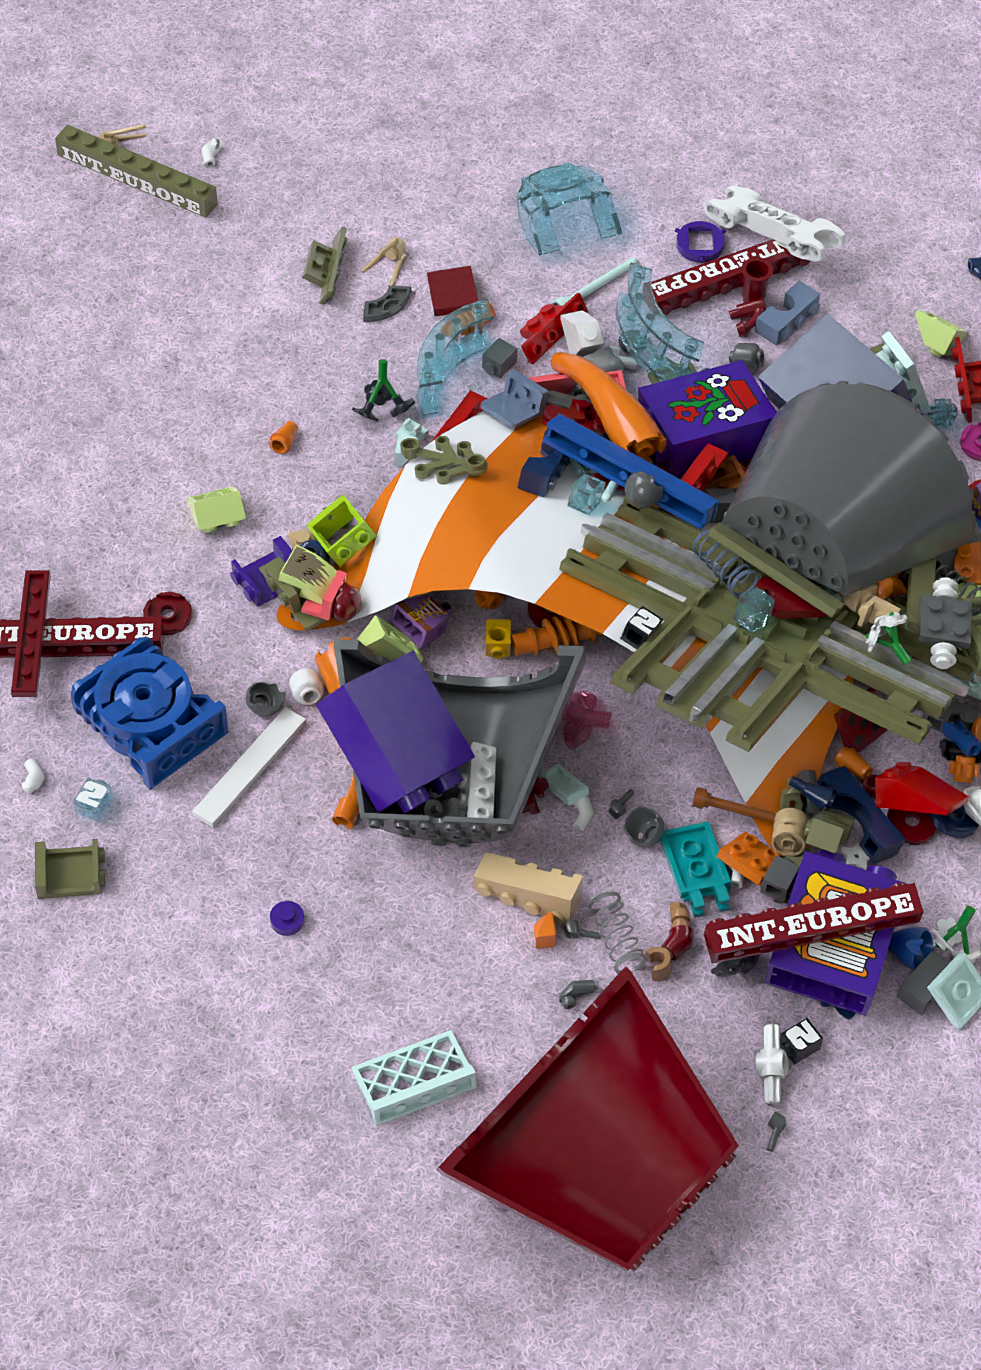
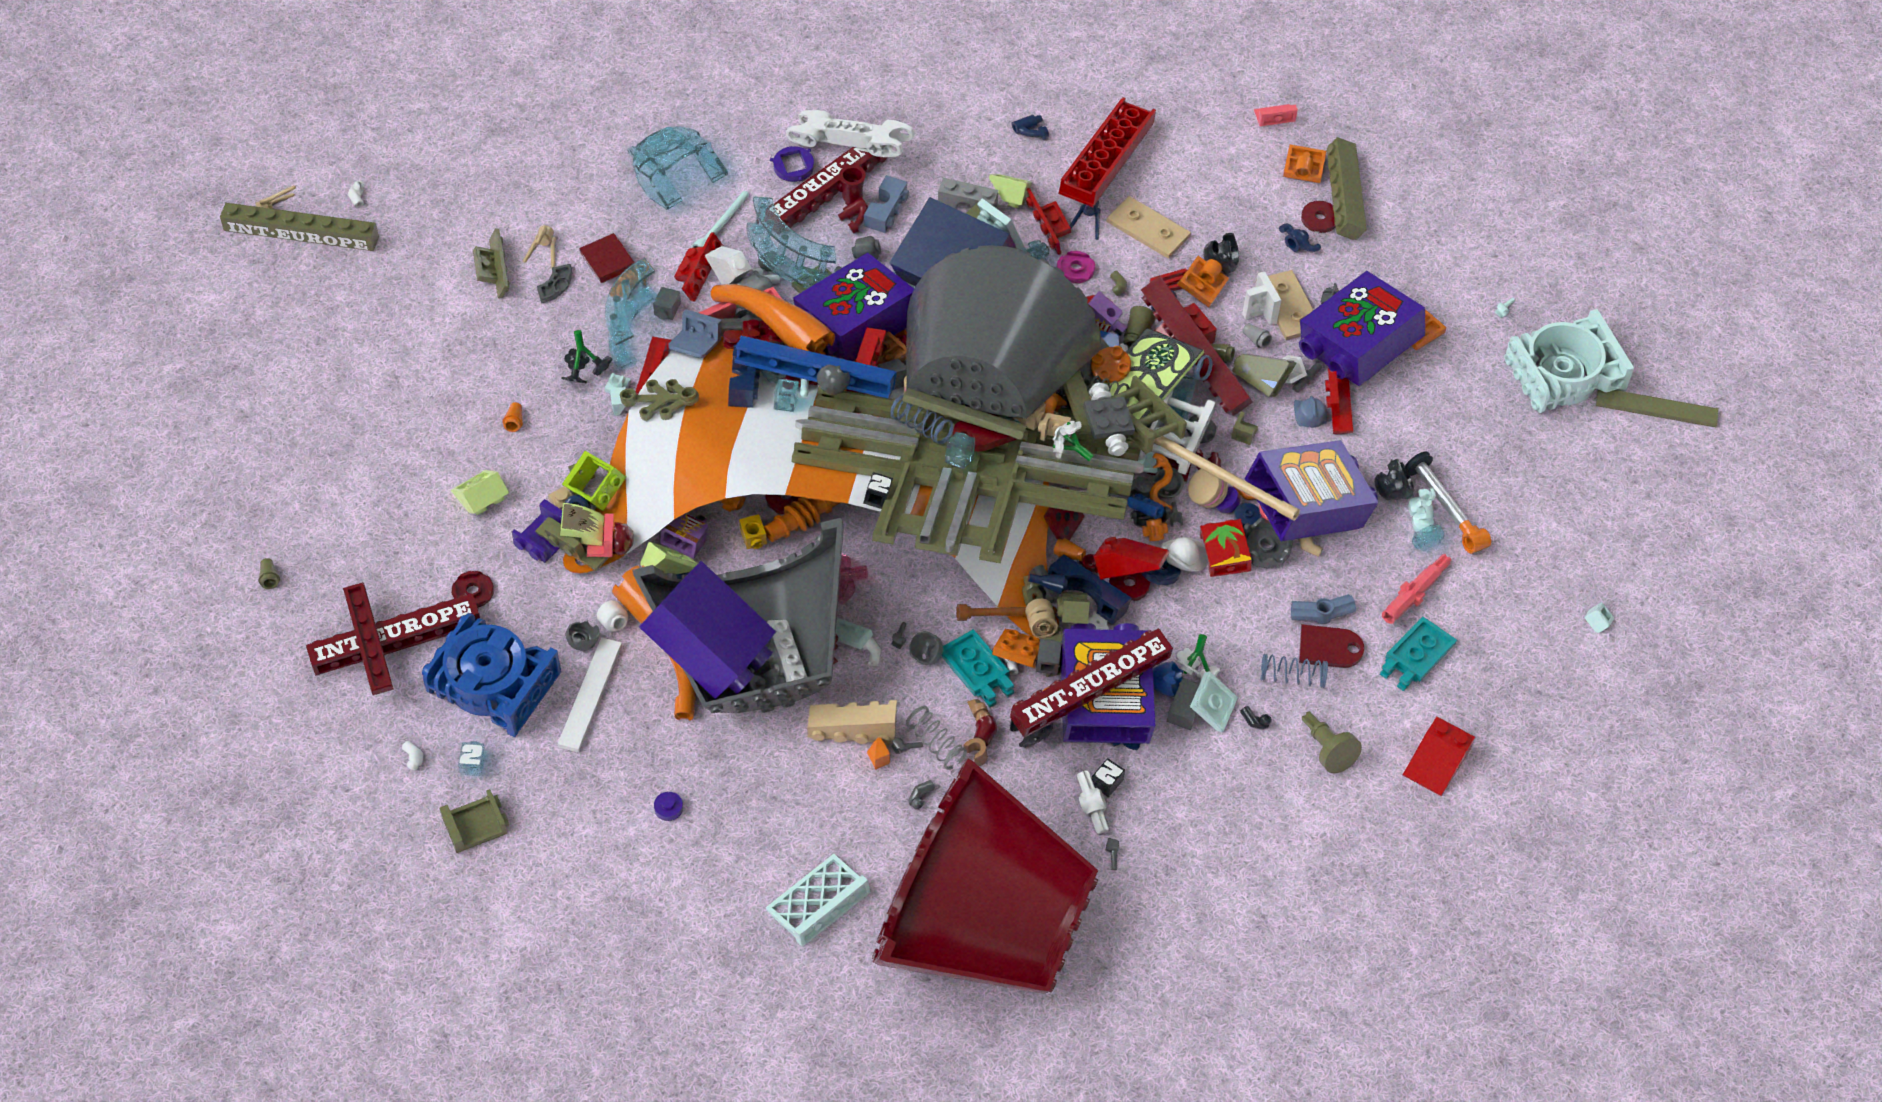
camera: 20 degrees left, 0 degrees up
(870, 319) = (954, 192): none -> light grey arch

